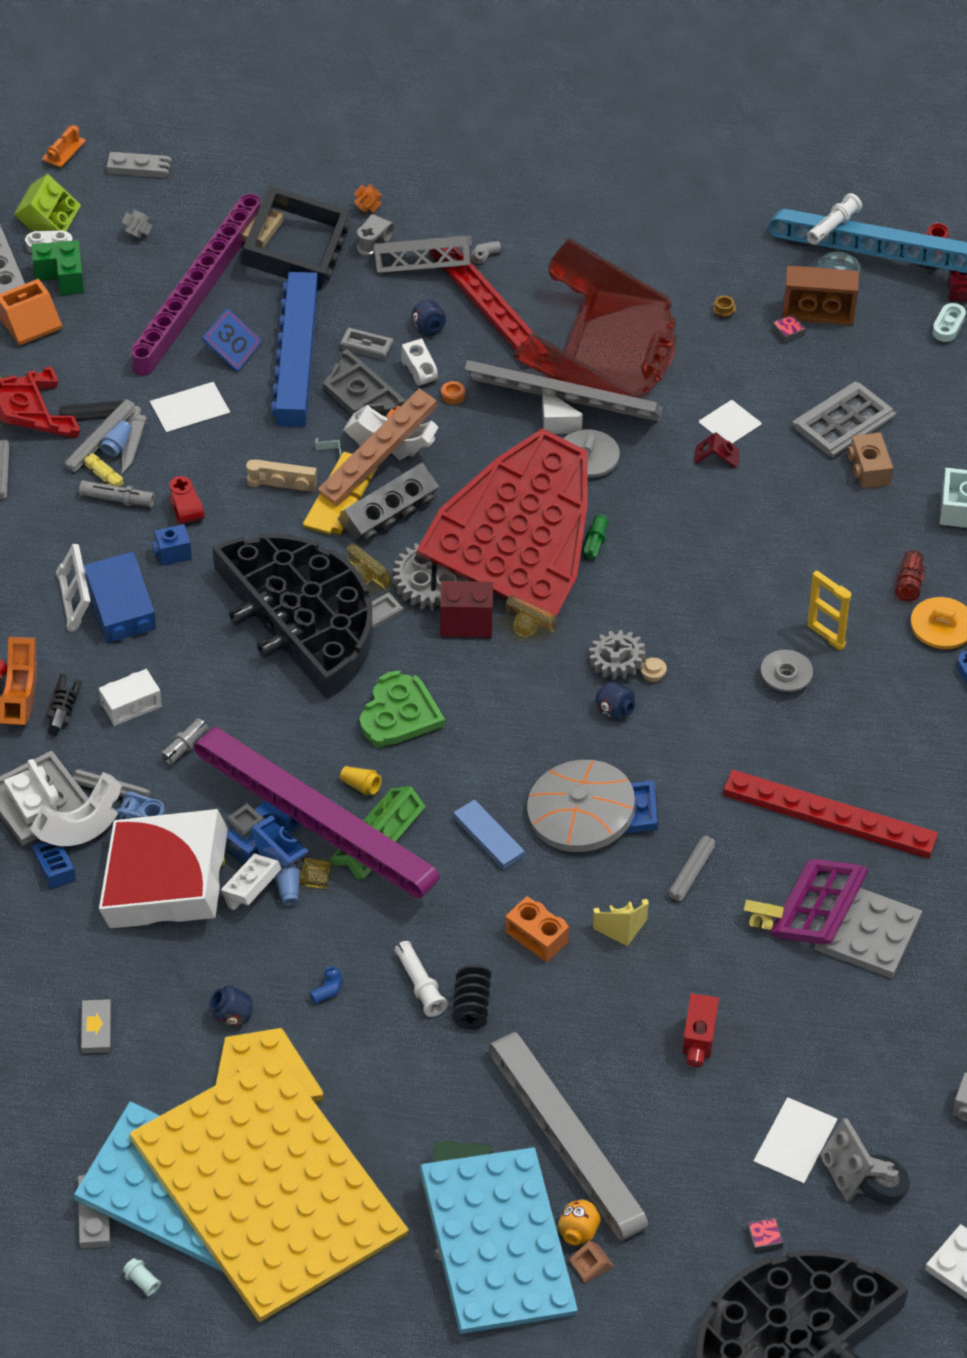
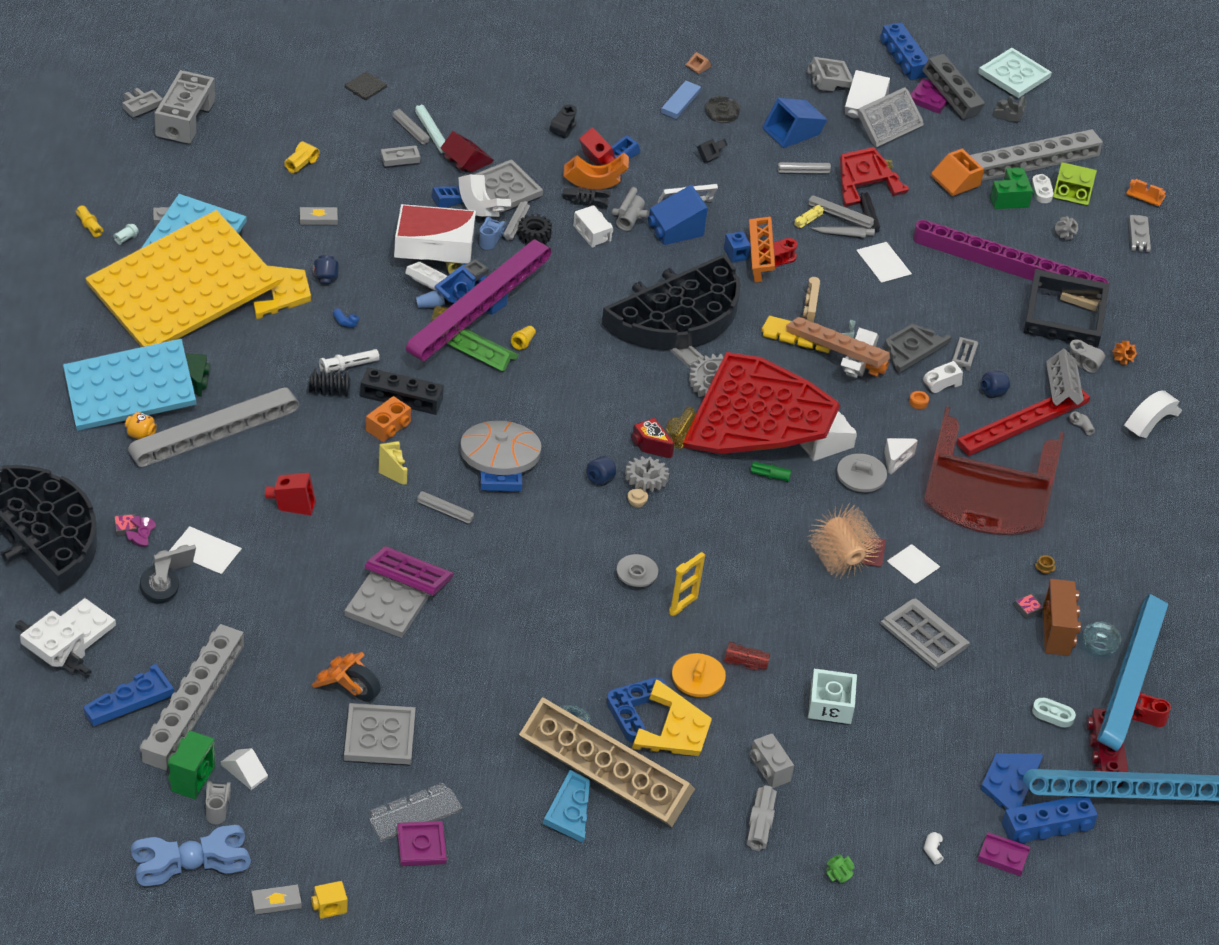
camera: 85 degrees right, 5 degrees down
(31, 791) = (502, 177): white bracket -> none
(99, 655) = (630, 210): none -> light grey pin
(109, 1331) = (89, 221): none -> yellow pin
(115, 440) = (837, 218): medium blue cone -> none
(119, 494) = (784, 225): light grey pin -> none
(133, 752) = (528, 224): none -> black tyre
(184, 741) = (559, 254): light grey pin -> none
(195, 525) = (757, 245): none -> orange fence
(231, 339) = (949, 276): blue piece -> none
(296, 349) = (948, 311): blue brick -> none
(368, 566) = (722, 343): clear yellow tile -> none
(399, 710) = (589, 359): bright green plate -> none
(416, 480) = (770, 334): dark grey brick -> none
(466, 609) = (683, 387): dark red slope -> none
(479, 913) = (415, 393): none -> black brick
(481, 181) = (1152, 411): none -> white arch
(488, 834) = (477, 402): medium blue tile -> none
(549, 647) = (652, 438): none -> slope
(564, 391) = (918, 451): light grey plate -> none
(590, 1261) = (115, 438): nougat slope -> none
(736, 461) = (844, 540): none -> light nougat piece
(762, 911) = (400, 538): light yellow tile -> none
(780, 1209) = (144, 526): none -> magenta piece
(830, 814) = (498, 591): red plate -> none
(839, 214) = (1155, 628): white pin -> none
(870, 460) = (874, 642): medium nougat brick -> none

